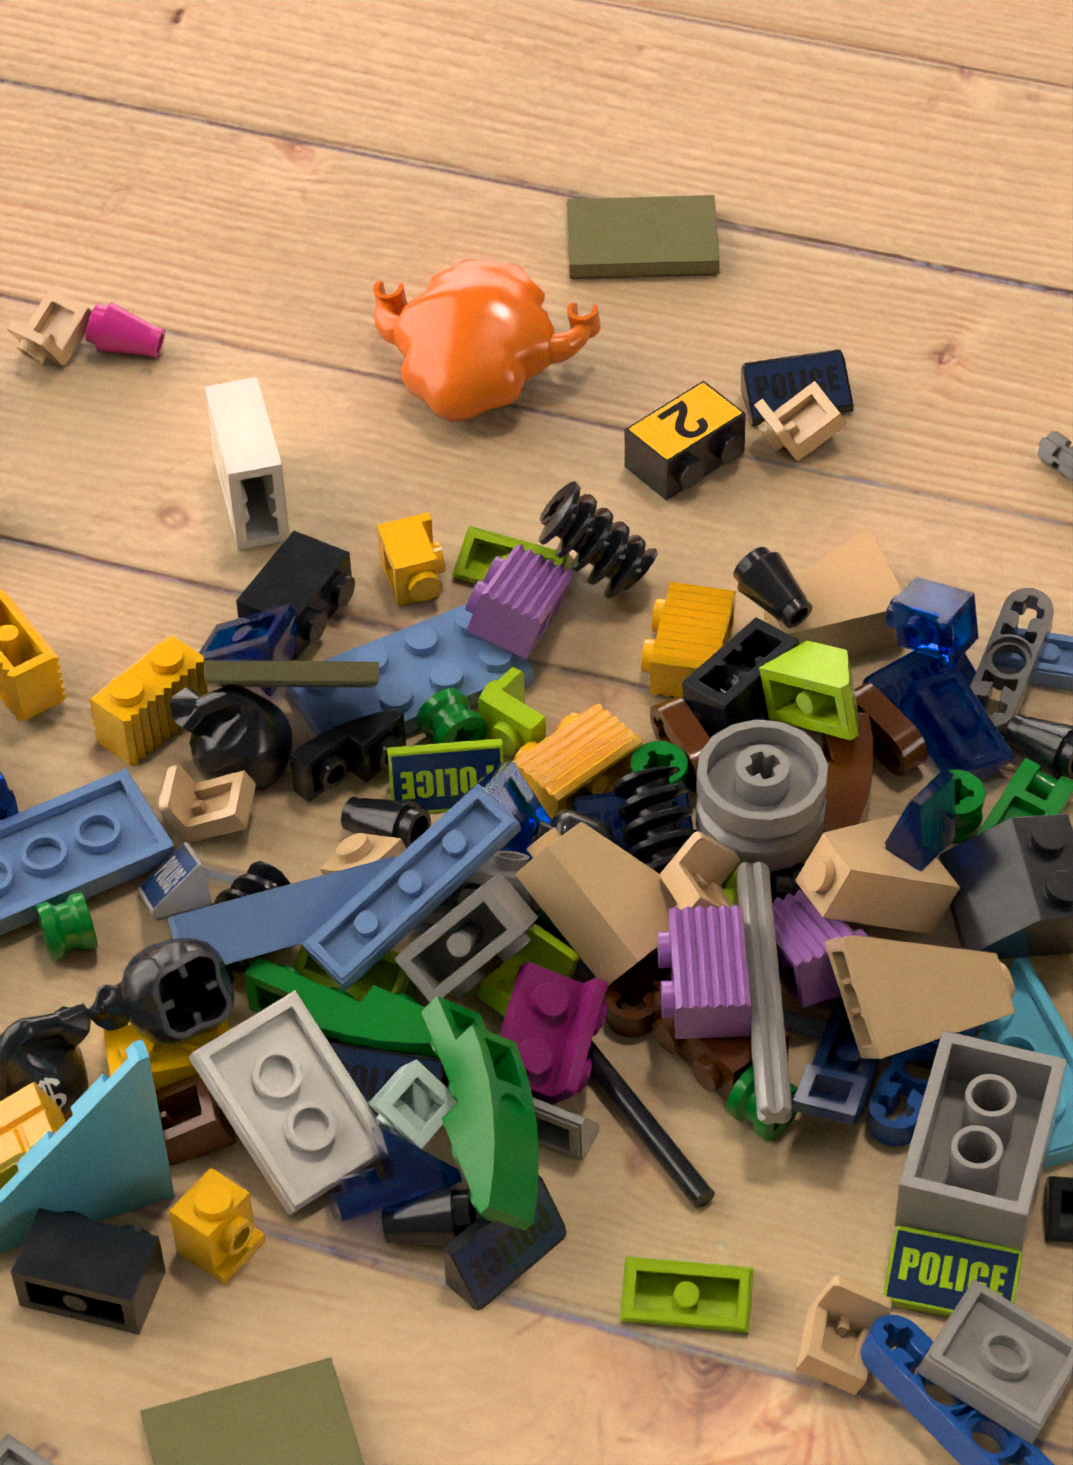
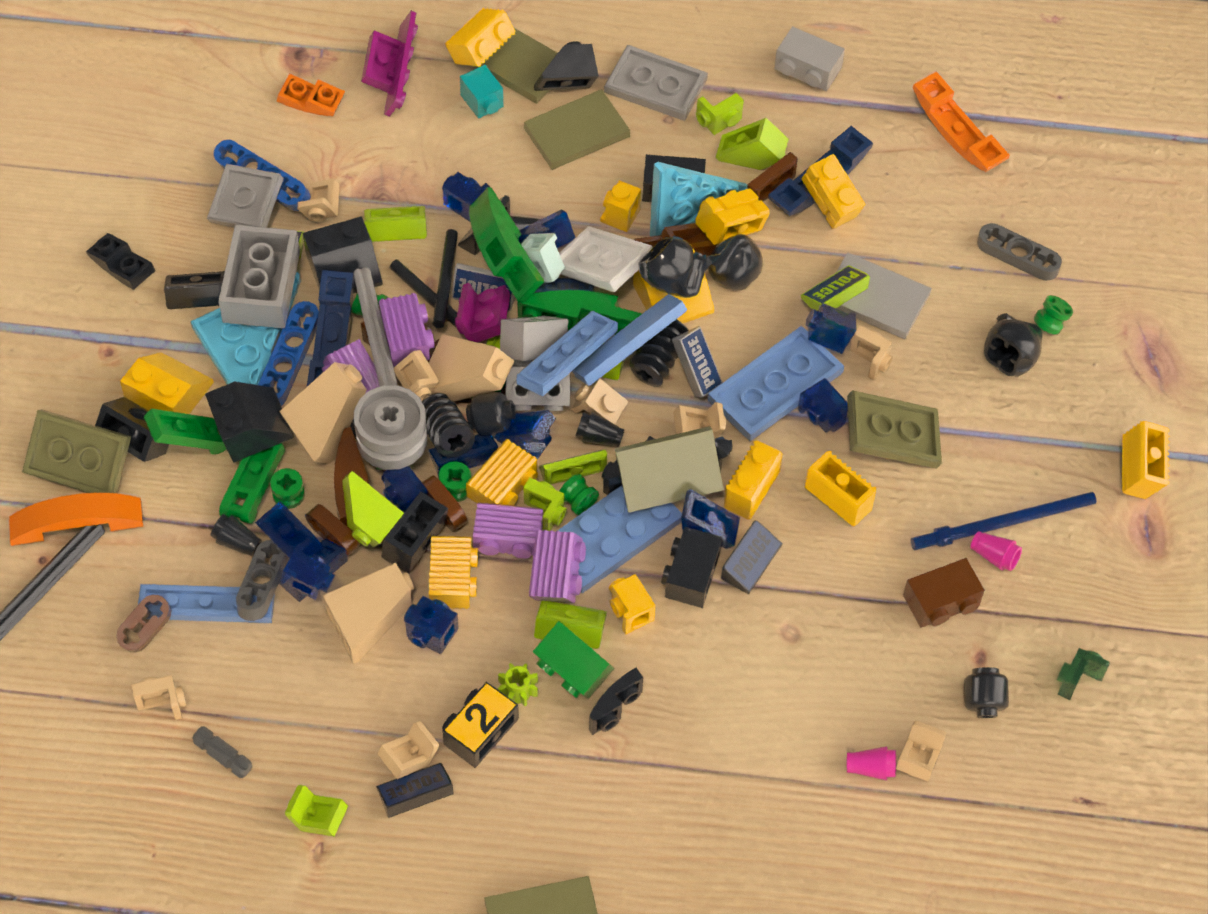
camera: 165 degrees right, 10 degrees up
(66, 926) = (749, 343): green wheel -> none
(198, 608) = (750, 558): none -> slope
(247, 463) = (749, 639): white brick -> none
(469, 450) = (609, 707): none -> black slope
(476, 336) = (633, 776): orange piece -> none
(516, 480) = (573, 660): none -> green brick
(530, 1302) = (460, 193): none -> clear blue brick
(573, 678) = (506, 529): none -> medium lavender brick
(595, 540) = (518, 610): black piece -> none
(606, 1138) = (445, 279): none -> black bar
(617, 480) = (526, 683): none -> lime gear
(723, 549) = (431, 624): none -> clear blue brick
(771, 585) = (406, 579): black cone -> none
(811, 1213) = (341, 249): none -> black slope
(913, 991) = (295, 341): tan slope -> none
(926, 823) = (303, 437): clear blue slope -> none
(943, 371) = (315, 812): none -> lime bracket

